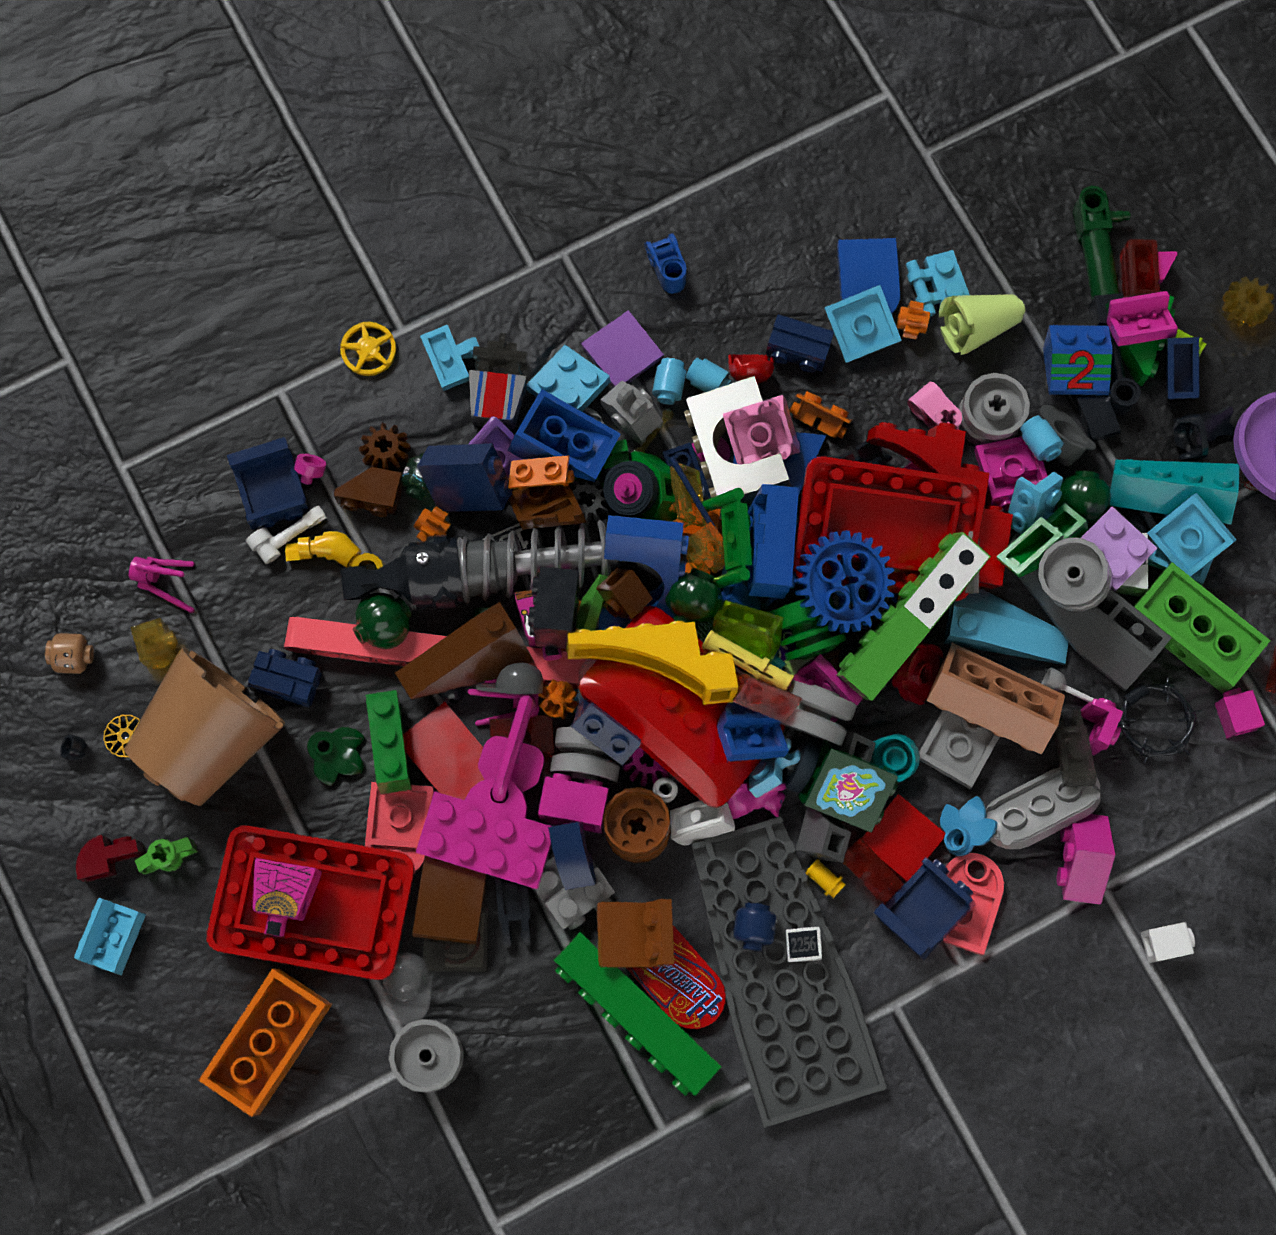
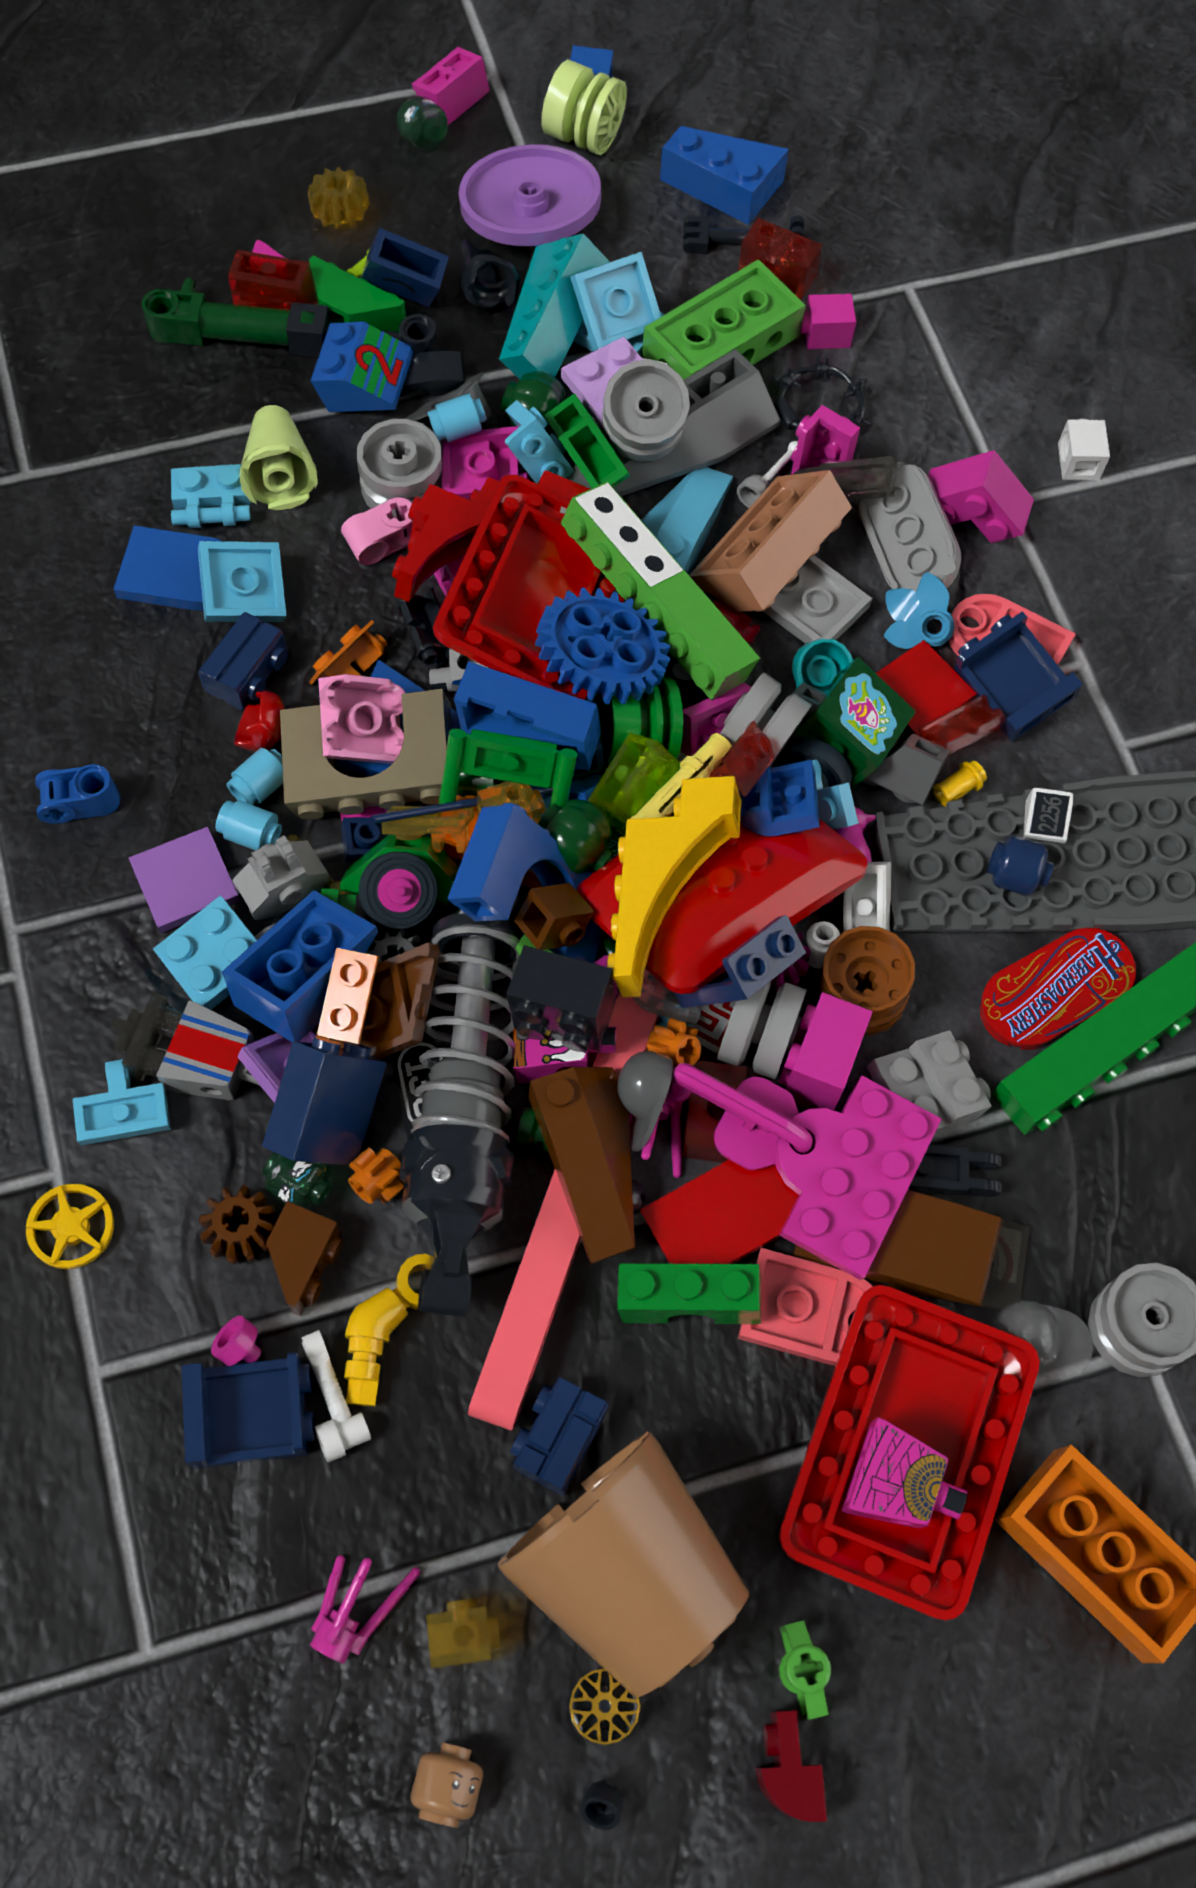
camera: 80 degrees left, 10 degrees down
(109, 936) = (918, 1782): medium azure bracket -> none
(339, 757) = (690, 1375): dark green plate -> none
(382, 620) = (510, 1266): dark green plant -> none
(571, 855) = (904, 1059): dark blue slope -> none
(635, 934) = (1014, 1004): dark orange bracket -> none
(913, 319) = (252, 524): orange gear -> none
(1141, 319) = (335, 284): dark pink bracket -> none

